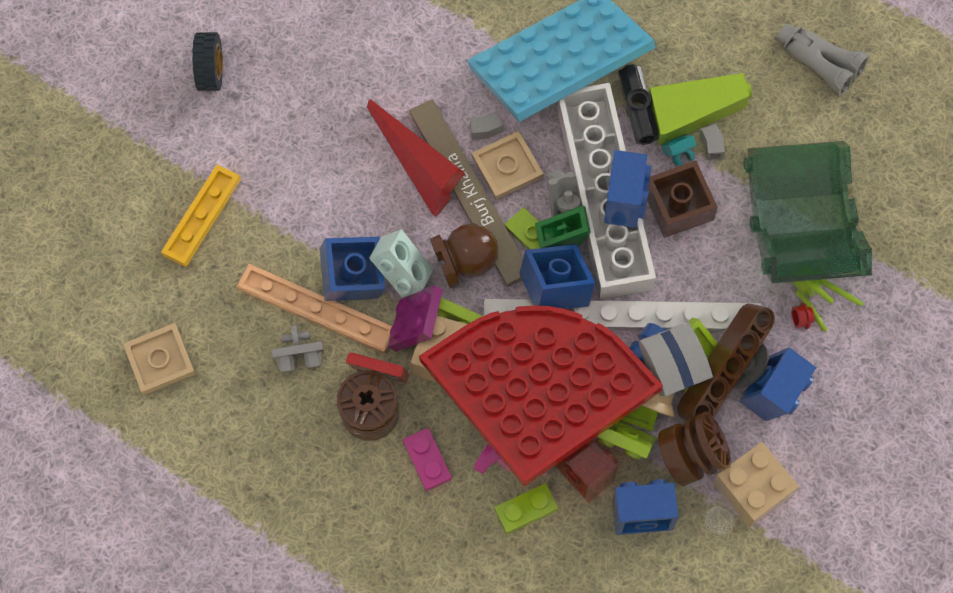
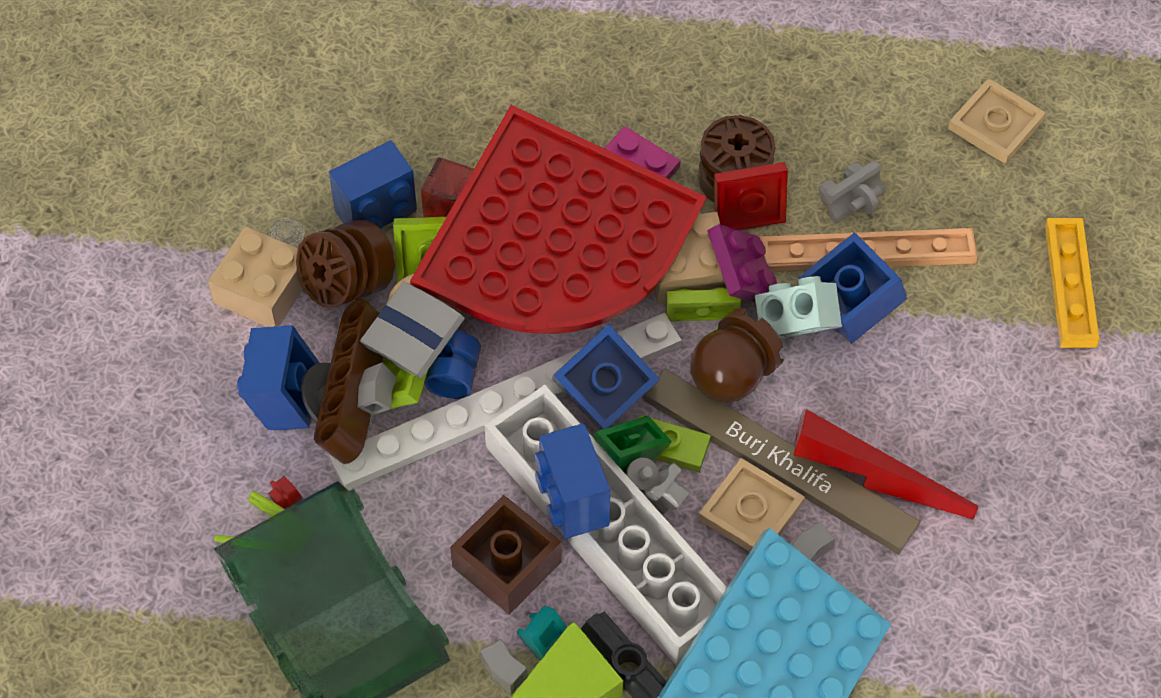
camera: 150 degrees right, 10 degrees down
(717, 339) = (376, 389): none -> light grey piece

